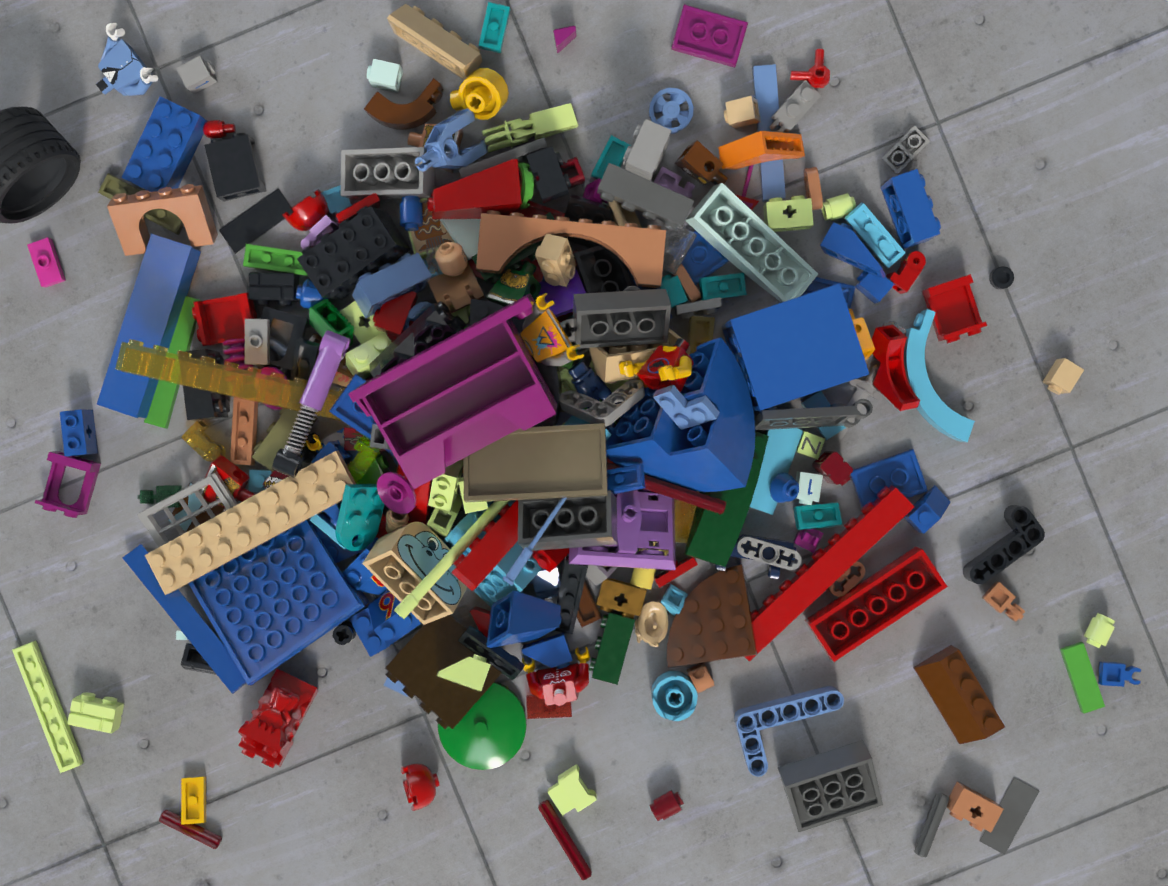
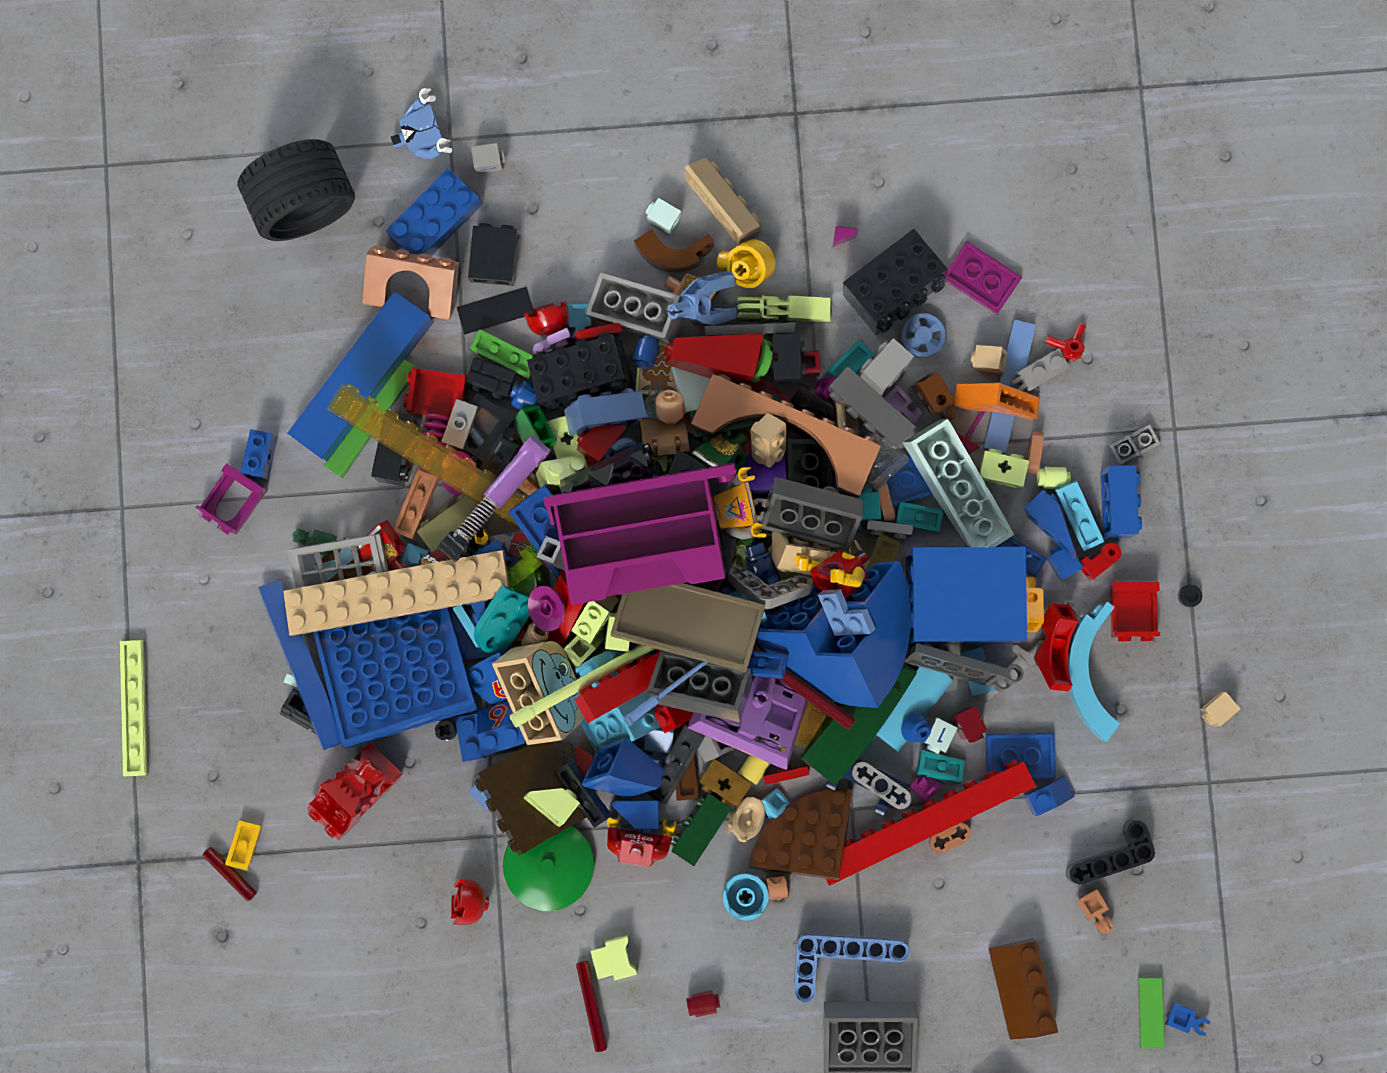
camera: 25 degrees right, 5 degrees down
(46, 262) = (283, 284): dark pink plate -> none
(96, 713) = (179, 729): yellowish green brick -> none
(162, 217) = (373, 236): olive tile -> none
(202, 442) = (372, 502): clear yellow leg -> none
(217, 129) = (489, 214): red cylinder -> none
(494, 27) = (781, 205): teal plate -> none
(537, 709) = (609, 866): clear red plate -> none
(628, 65) = (895, 282): none -> black brick
(810, 445) = (955, 696): yellowish green tile -> none
(876, 603) = (969, 870): red brick -> none
(1099, 630) = (1181, 970): yellowish green brick -> none

